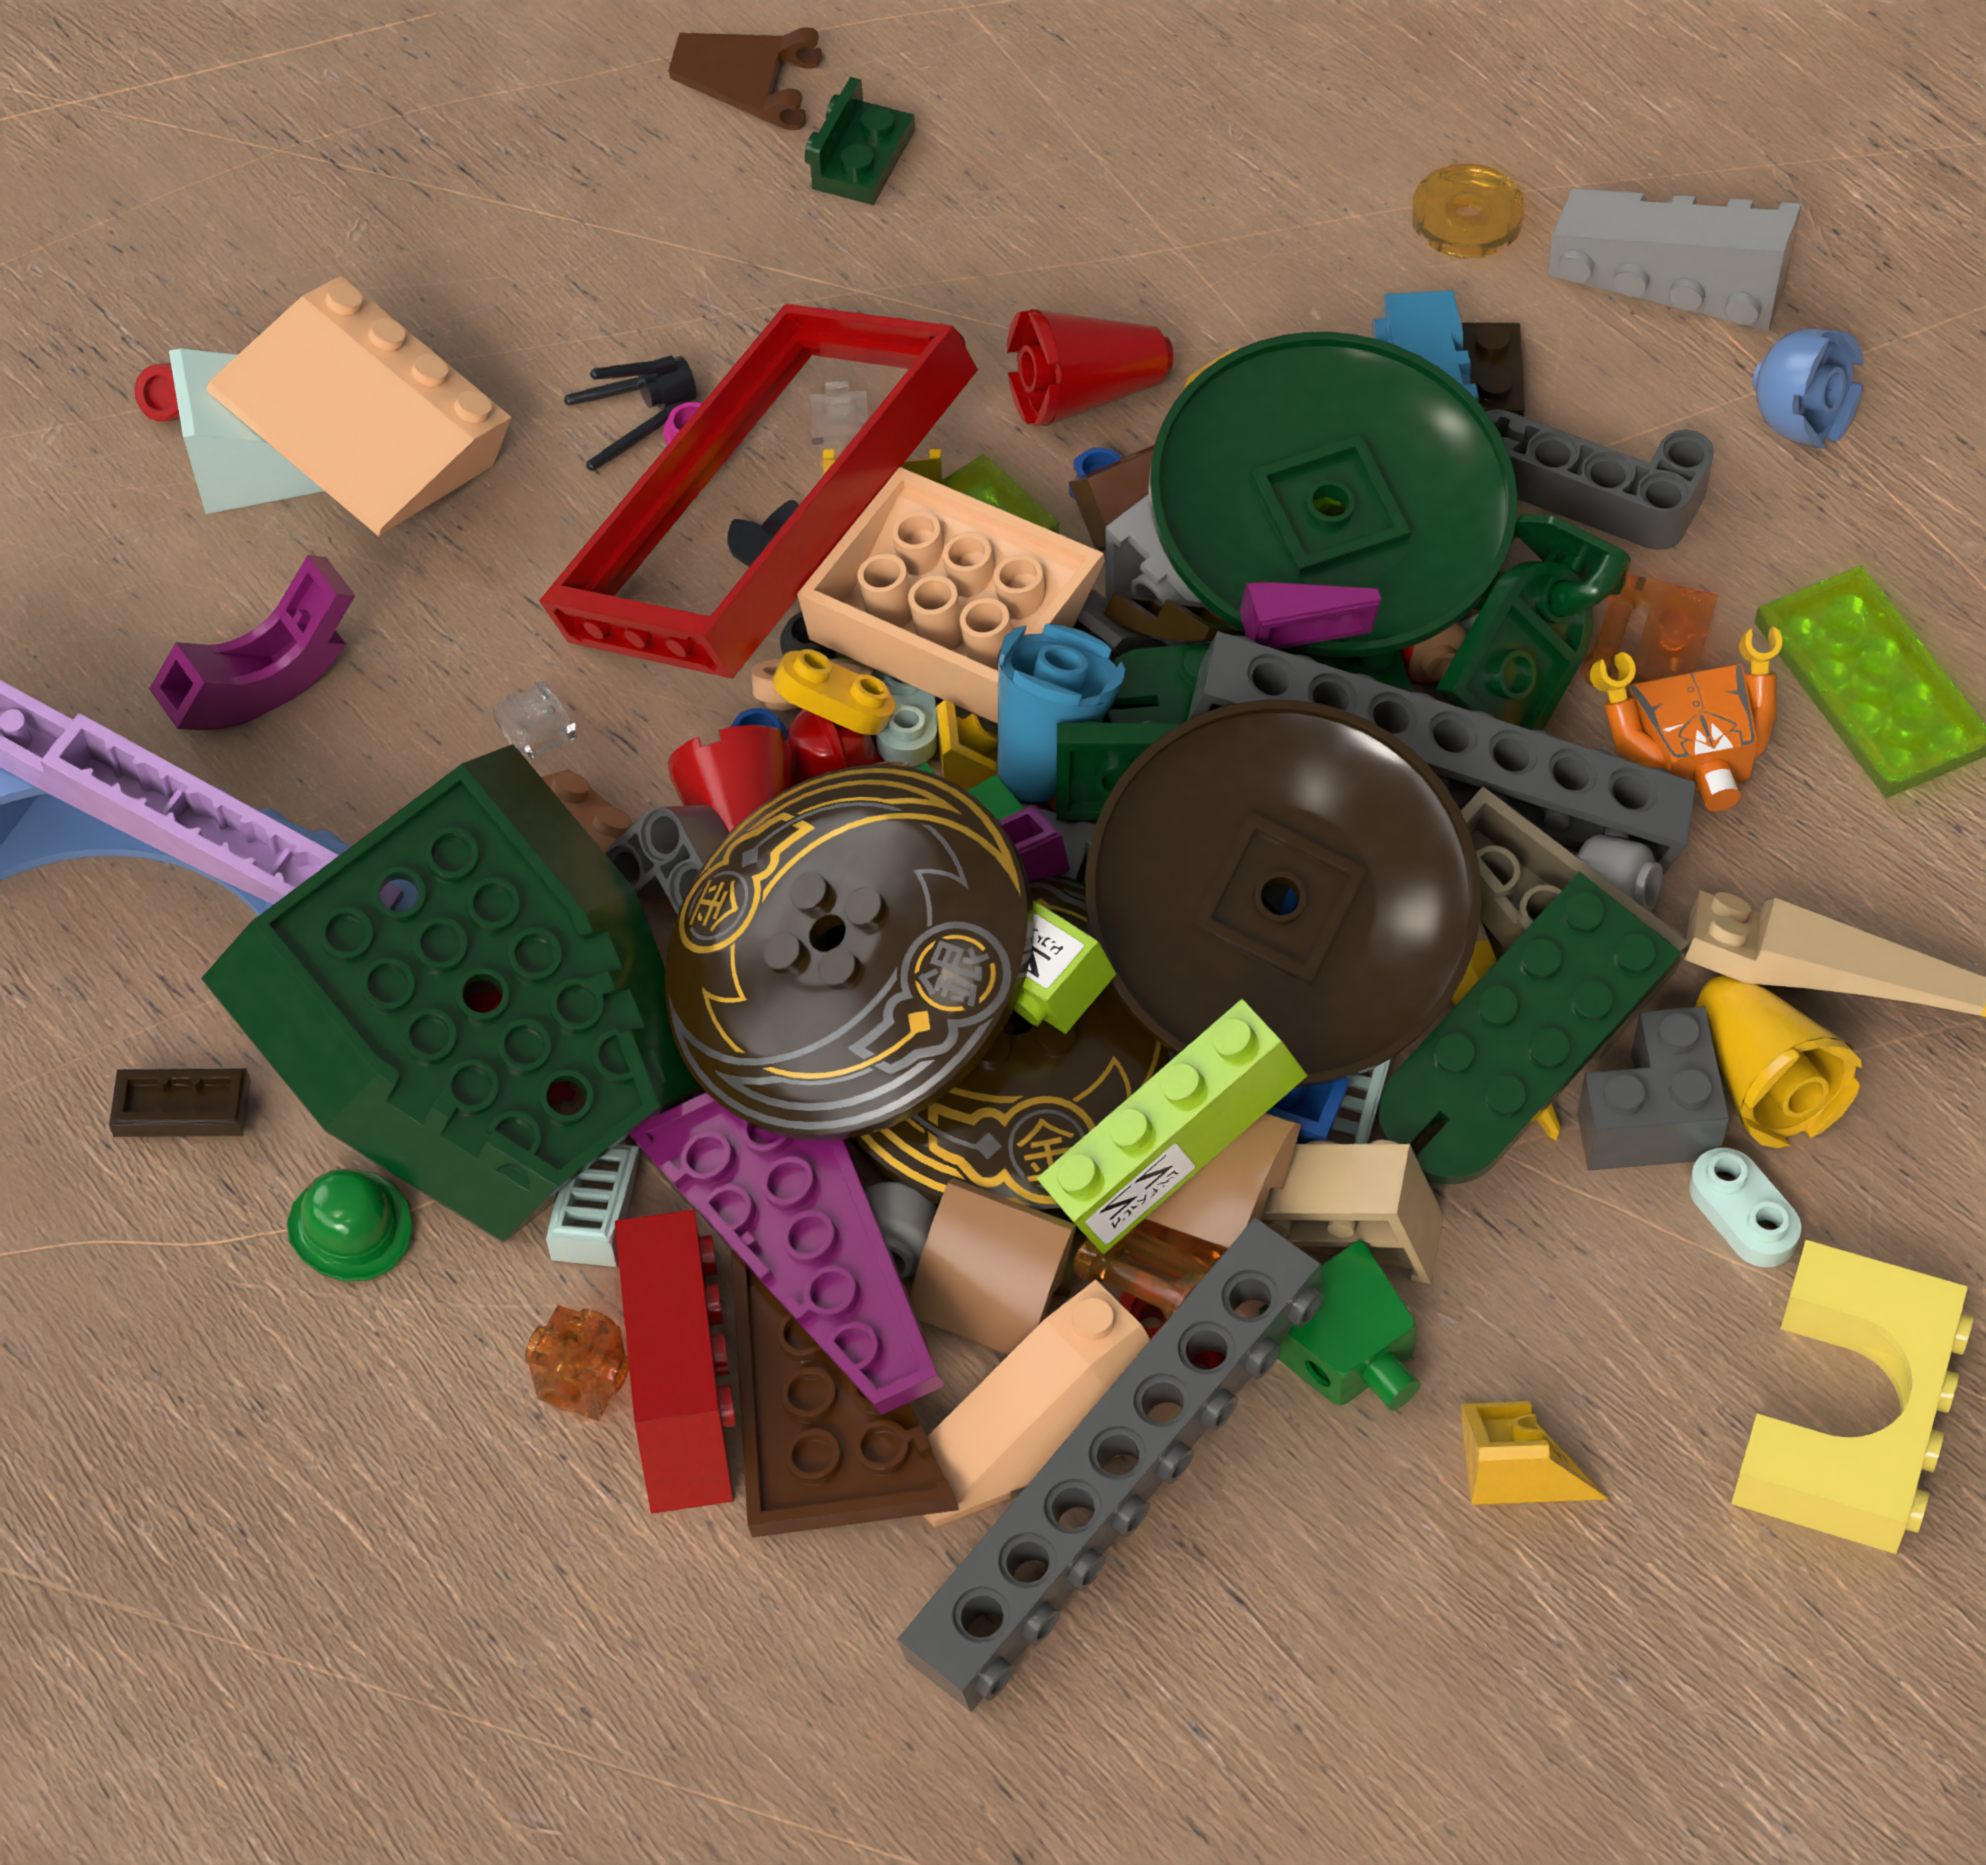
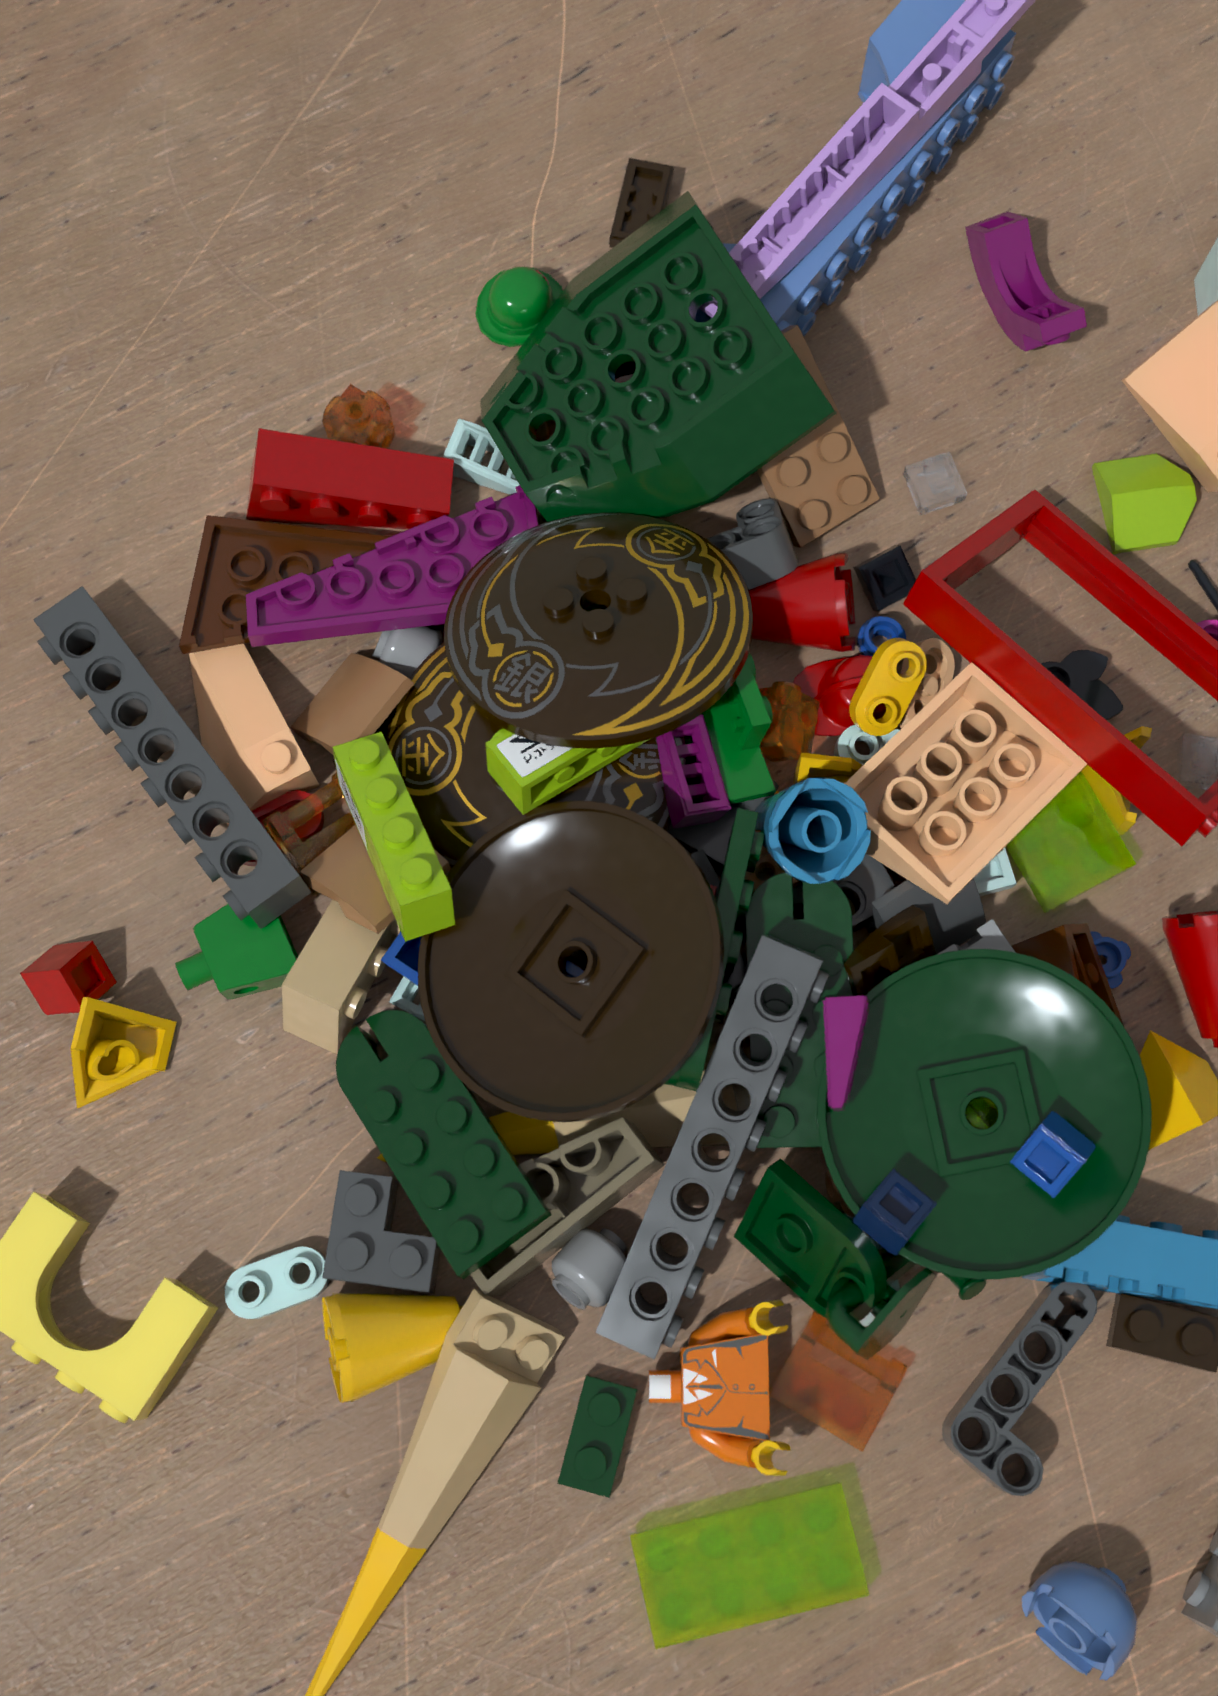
camera: 100 degrees right, 20 degrees up
(518, 517) = (1143, 501): none -> lime slope
(664, 735) = (886, 577): none -> black tile
(1364, 410) = (1053, 1154): none -> blue slope
(1447, 1534) = (66, 976): none -> red panel
(1469, 551) = (894, 1212): none -> dark blue slope
(1793, 848) = (597, 1436): none -> dark green plate

